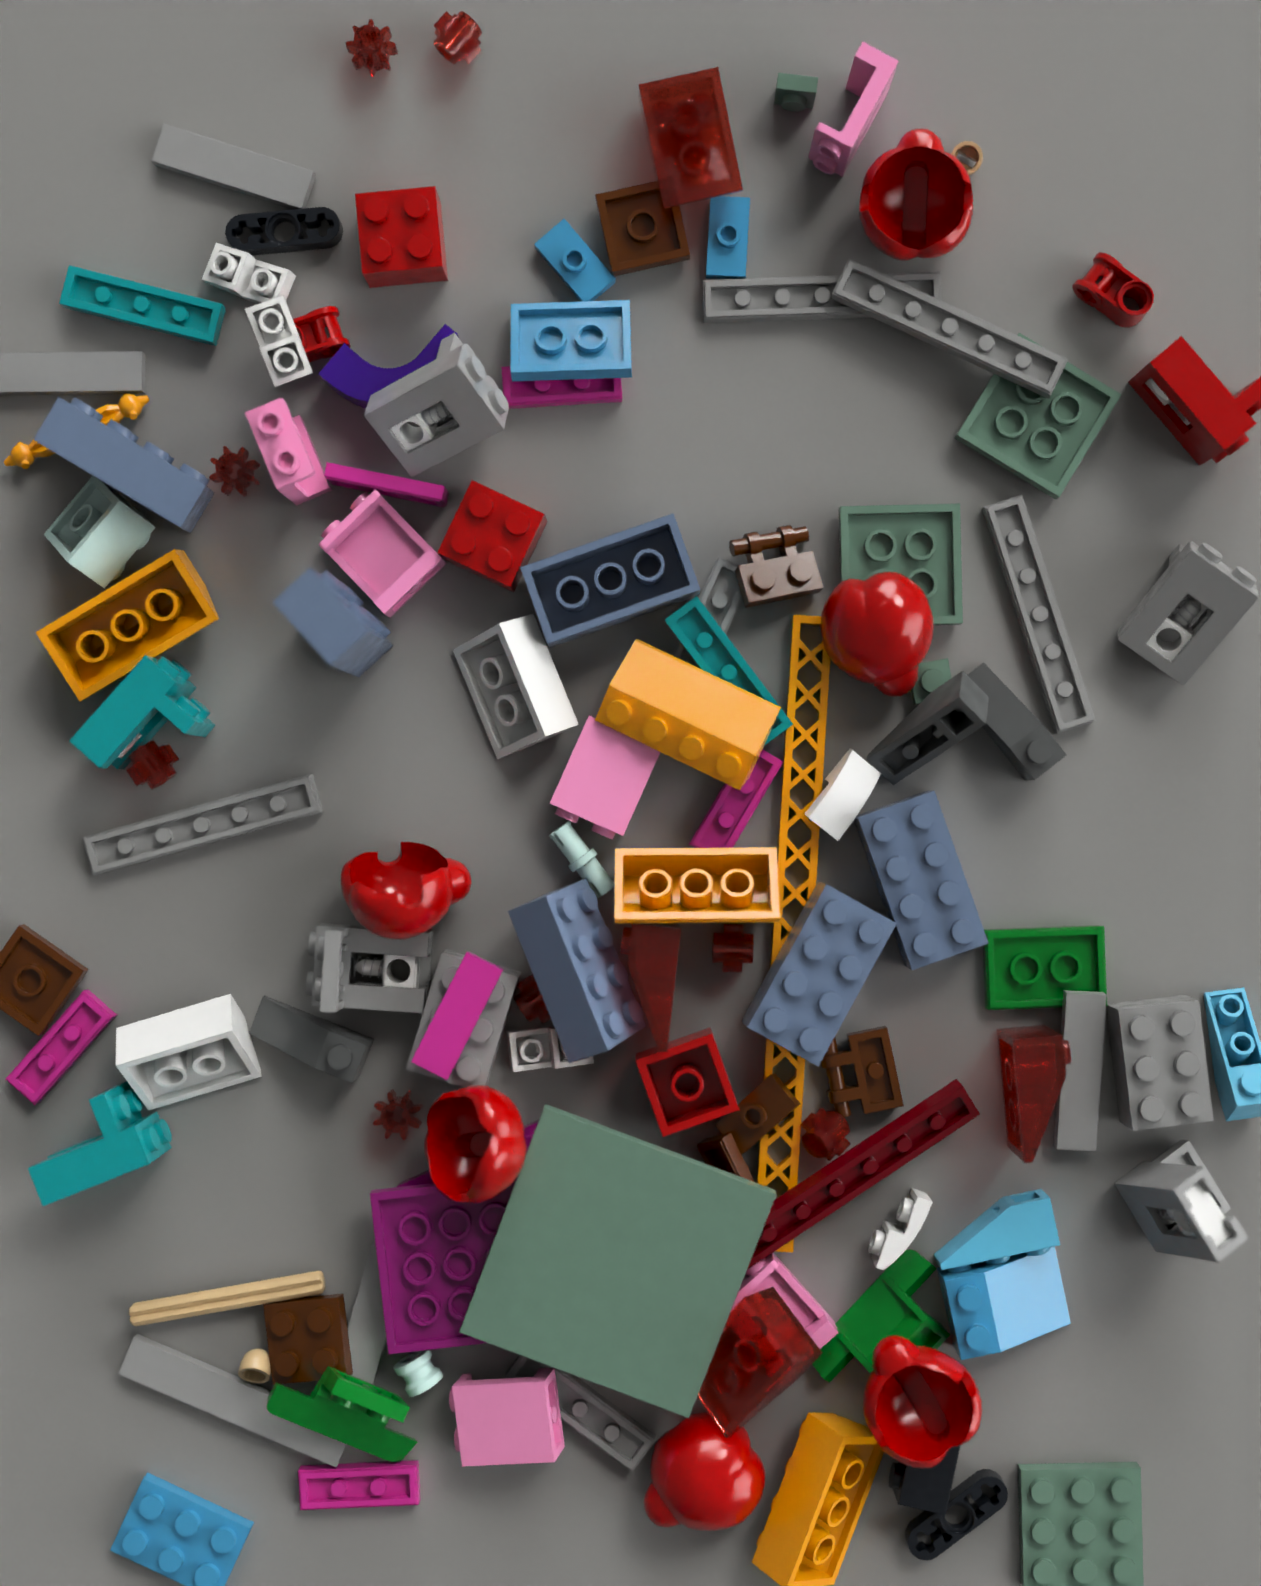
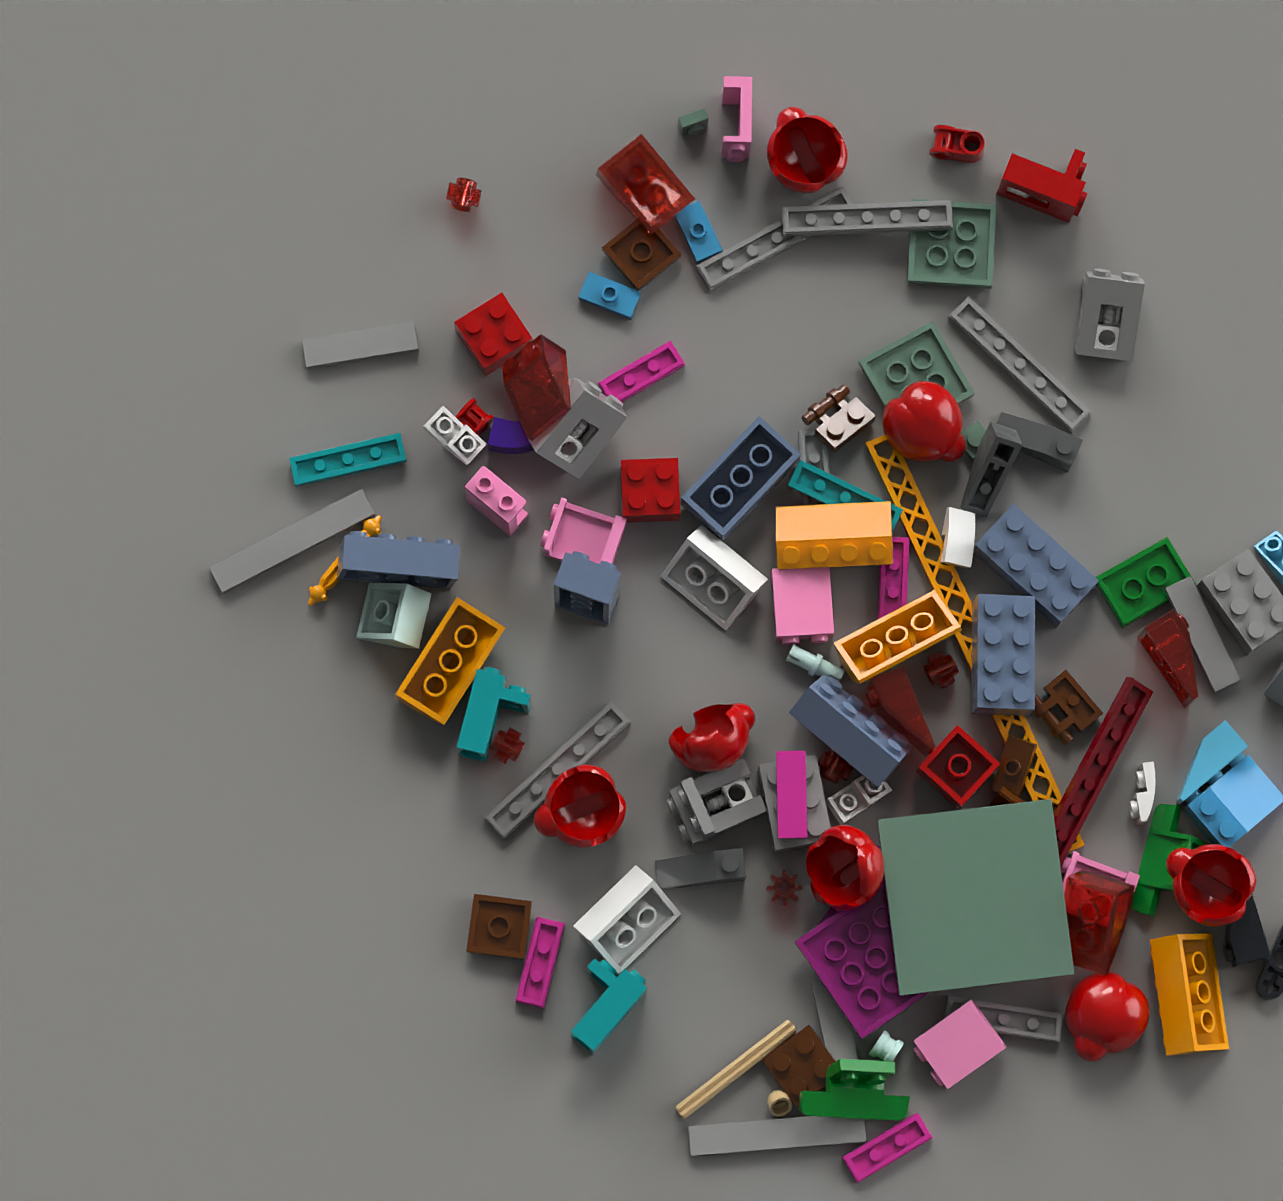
camera: 30 degrees left, 10 degrees down
(194, 892) = (581, 807): none -> red piece
(224, 468) = (462, 524): clear red gear -> none
(246, 276) = (405, 409): white slope -> none
(312, 217) = (392, 373): black beam -> none
(365, 56) = (416, 233): clear red gear -> none
(386, 485) = (568, 491): dark pink tile -> none
(414, 328) = (538, 385): none -> clear red slope
(571, 340) = (634, 344): dark azure plate -> none
(825, 1134) = (1063, 756): clear red gear -> none
(971, 151) = (822, 104): tan hinge -> none

